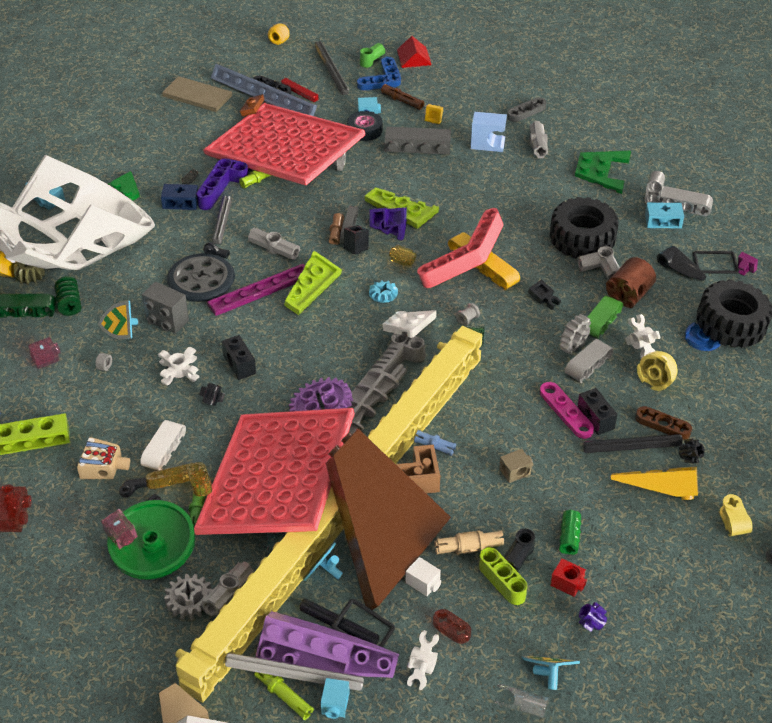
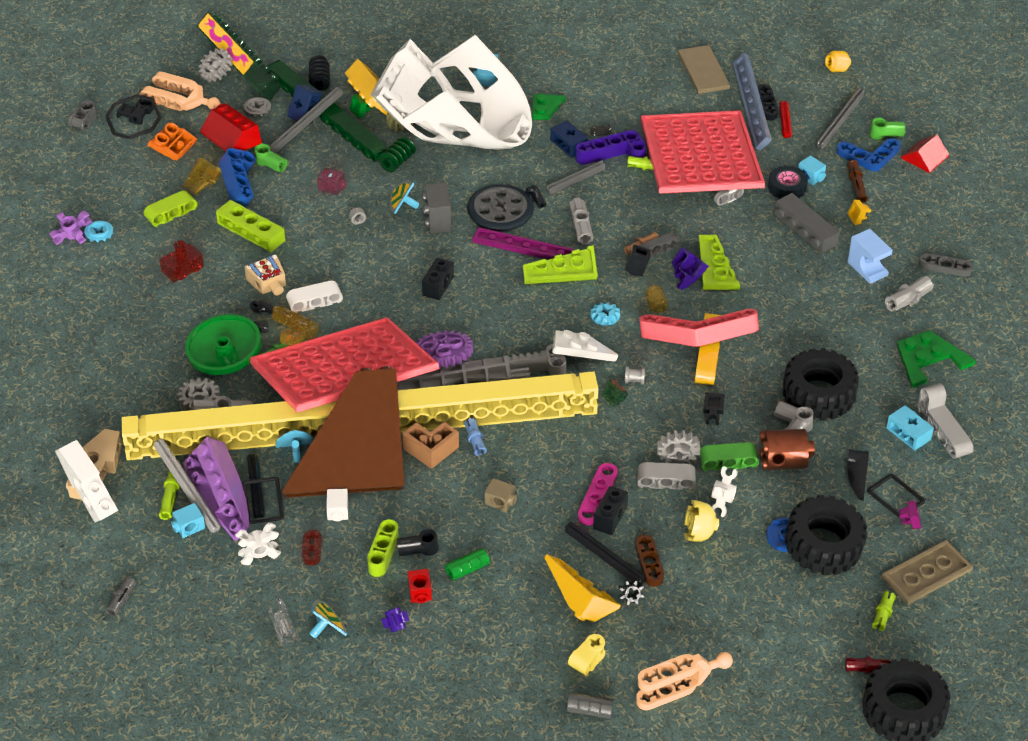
camera: 50 degrees right, 0 degrees up
(119, 529) = (208, 320): clear pink brick -> none
(178, 365) = (395, 254): white pin -> none
(212, 394) = (387, 288): black gear -> none
(252, 105) = (726, 105): dark orange plate -> none
(468, 542) = (390, 508): tan pin -> none

